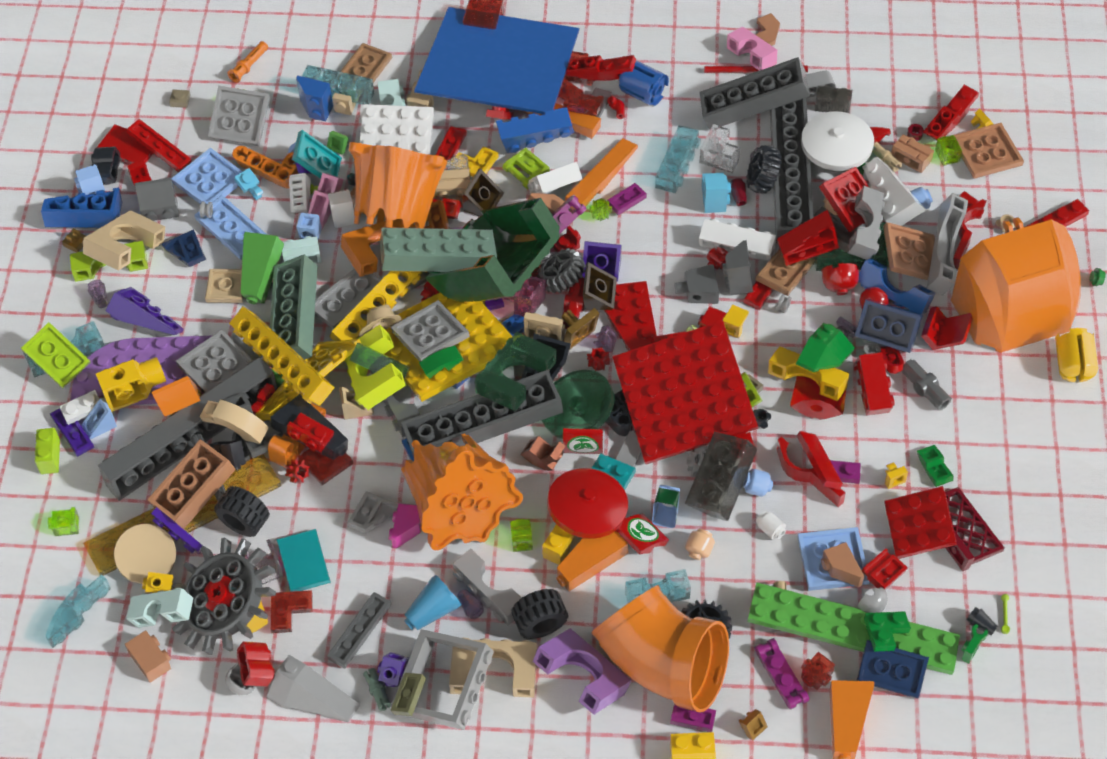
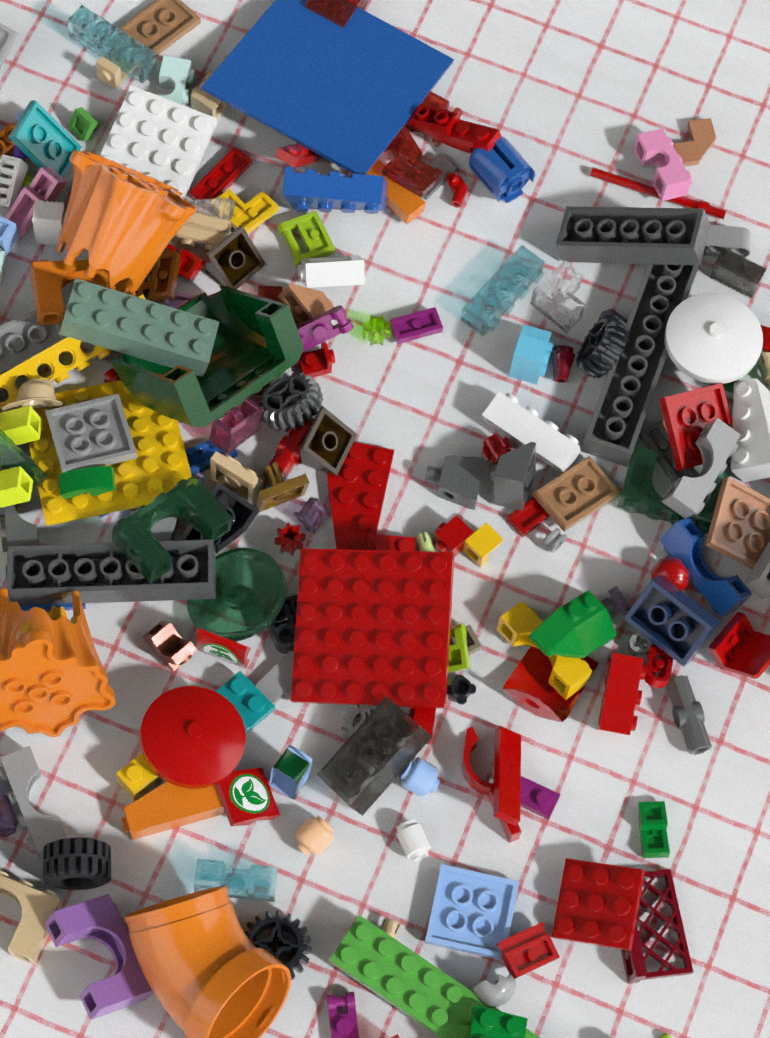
camera: 10 degrees right, 10 degrees up
(315, 97) = (78, 54): blue slope -> none
(521, 535) = (100, 746): clear neon green brick -> none
(603, 172) = (398, 279): orange slope -> none
(604, 256) = (350, 402): dark purple slope -> none
(809, 239) = (617, 467): red wedge -> none
(840, 278) = (640, 532): red cylinder -> none
(842, 565) = (475, 927): nougat slope -> none
(895, 476) = (595, 827): yellow tile -> none

